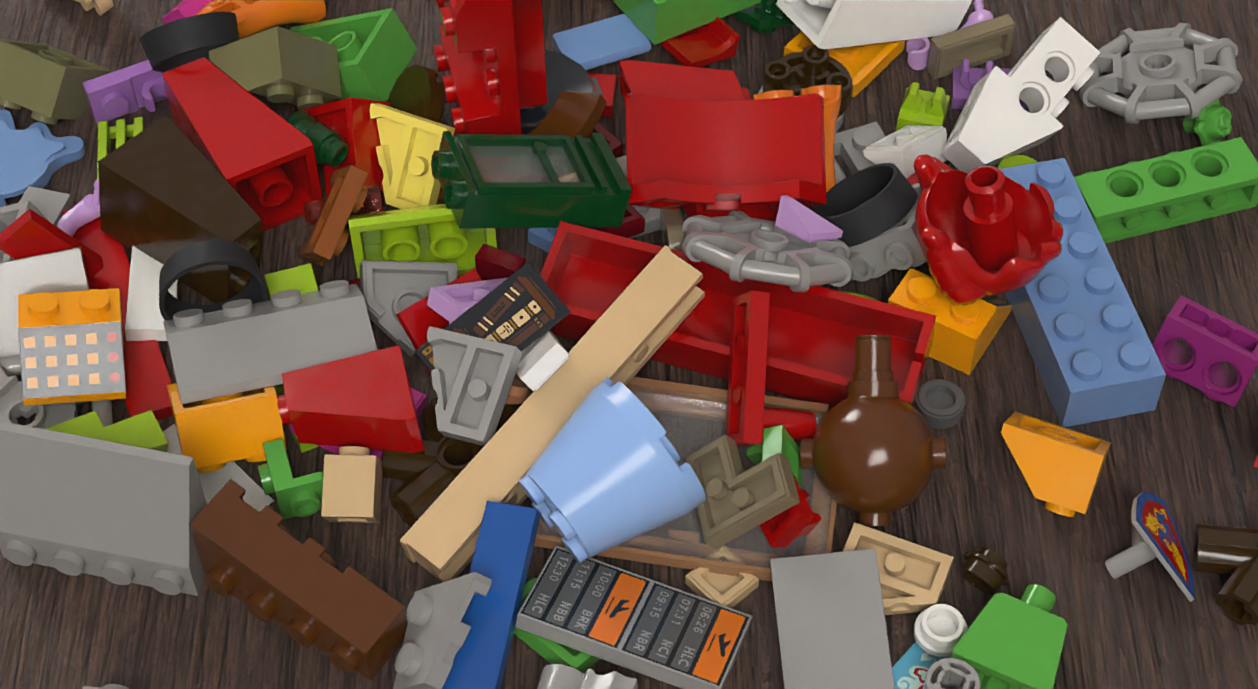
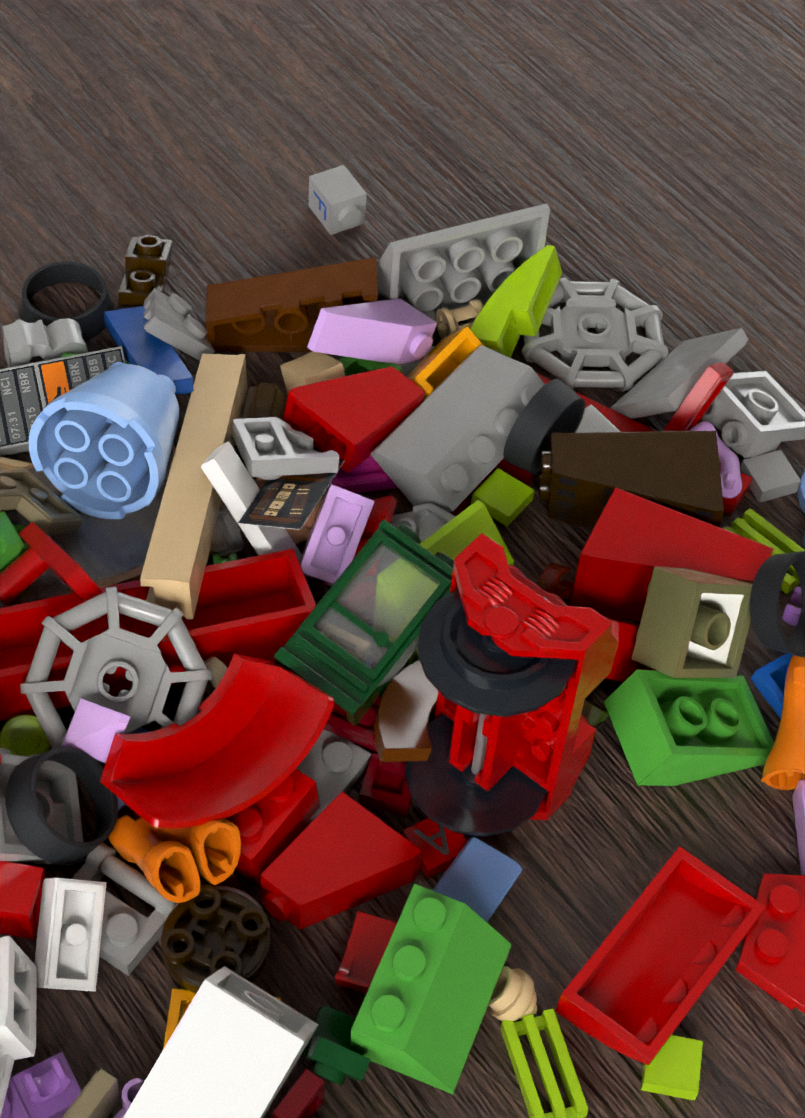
camera: 140 degrees right, 0 degrees up
(71, 346) = (604, 358): slope -> none
(267, 462) = (374, 331): none -> lavender slope
(327, 143) = (603, 592): dark green arm -> none
(329, 231) = (521, 544): dark orange plate -> none
(923, 107) = (87, 1021): lime tile -> none

